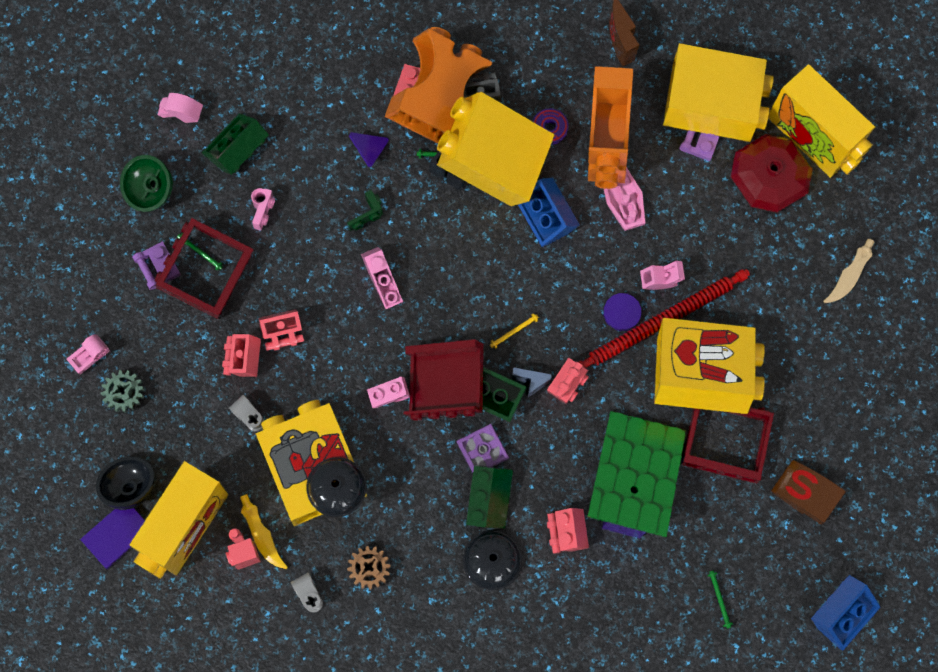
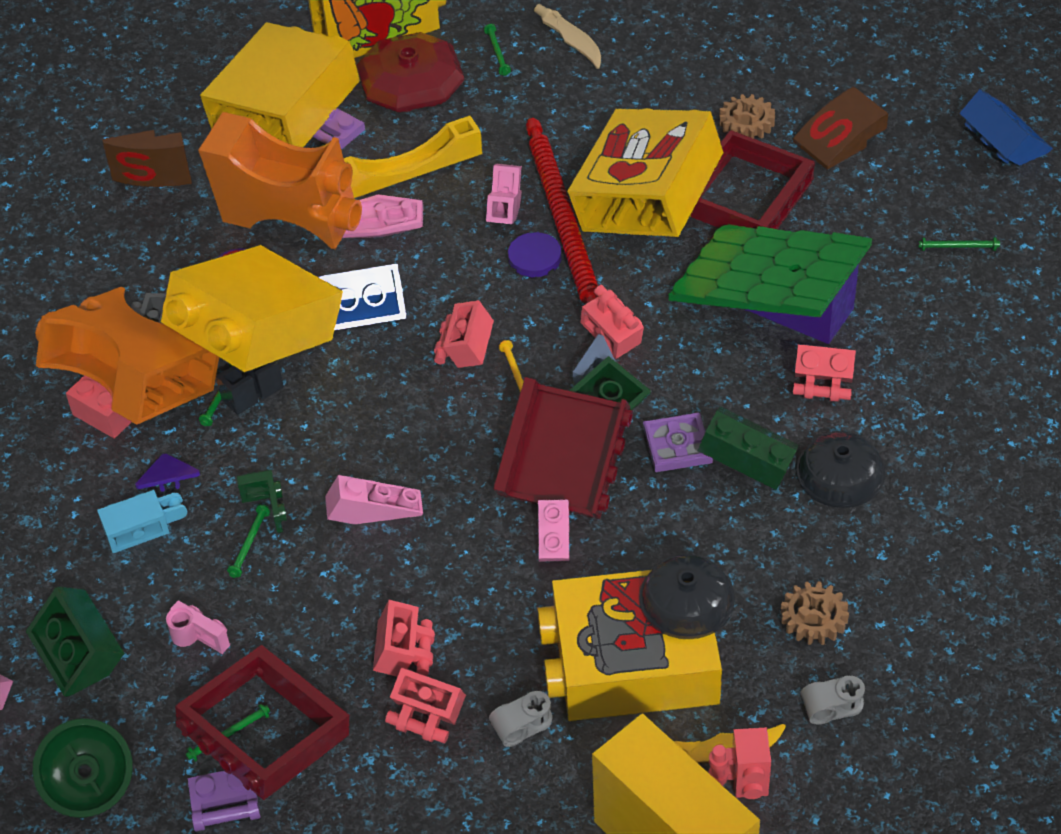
camera: 65 degrees left, 25 degrees down
(330, 144) = (140, 519): none -> medium azure brick
(334, 213) = (235, 571): none -> green axle
(529, 289) = (464, 335): none -> coral brick
(698, 221) = (451, 145): none -> yellow arch
(792, 416) = (747, 116): none -> medium nougat gear
(837, 213) = (504, 69): none -> green axle

